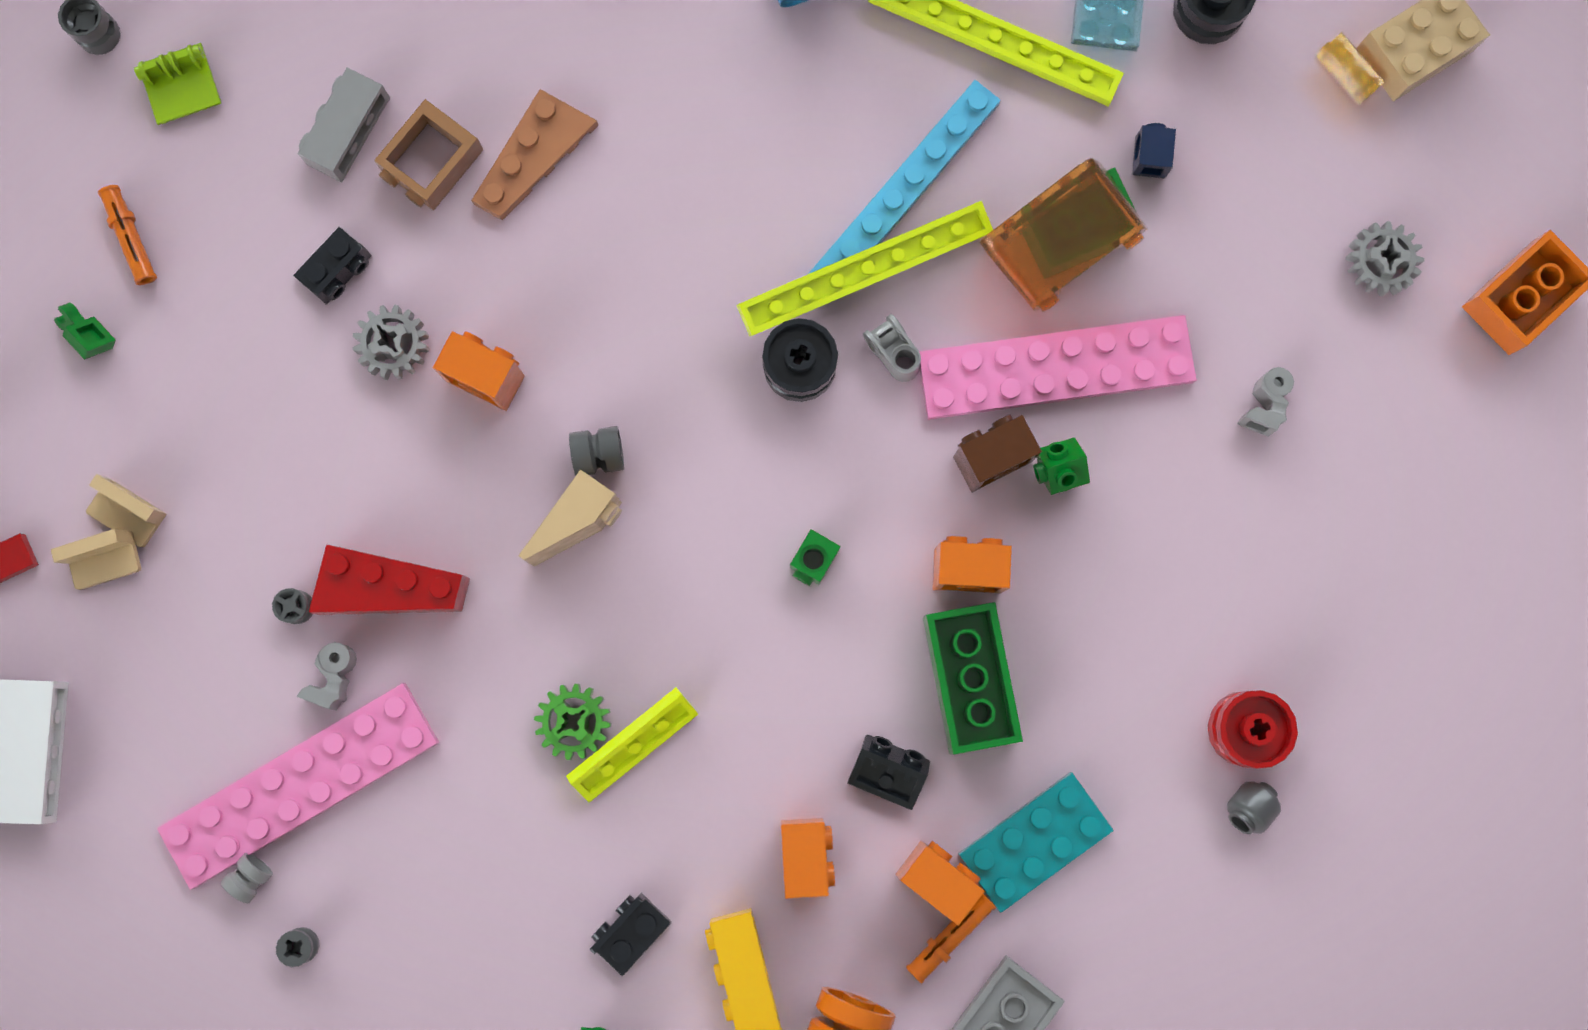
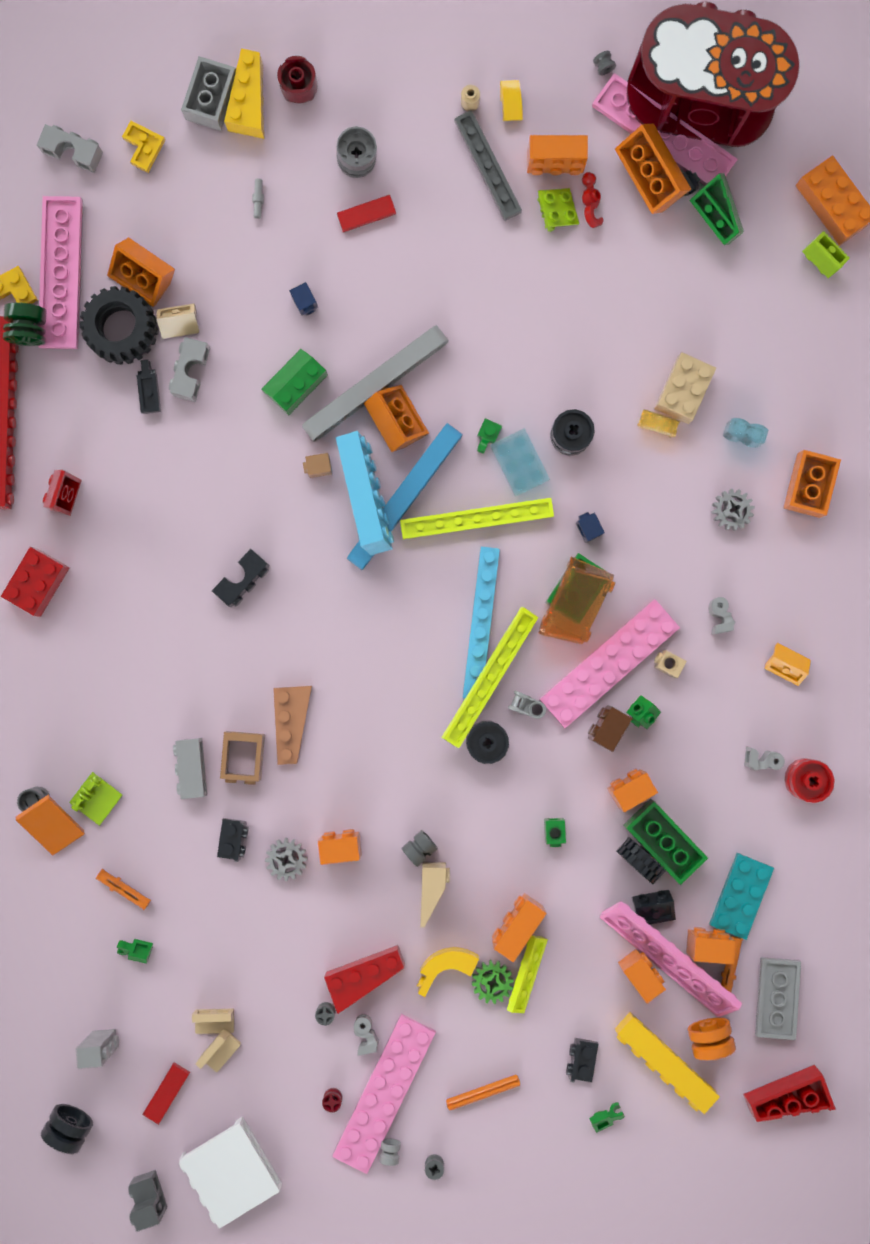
camera: 30 degrees left, 5 degrees up
(86, 70) = (50, 825): none -> orange tile
(207, 740) = (332, 1105): none -> dark red wheel
(447, 882) = (483, 1092): none -> orange axle
(540, 649) = (444, 959): none -> yellow arch
(664, 659) = (518, 927): none -> orange brick
(865, 864) = (670, 959): none -> bright pink plate
(917, 679) = (641, 860): none -> black wheel
(1143, 436) = (678, 663): none -> tan brick
(1211, 664) = (769, 759): none -> light grey leg
(1253, 807) = (832, 815): dark grey head -> none
(1326, 539) = (788, 664): none -> light orange panel
(1473, 159) = (749, 434): none -> clear light blue brick

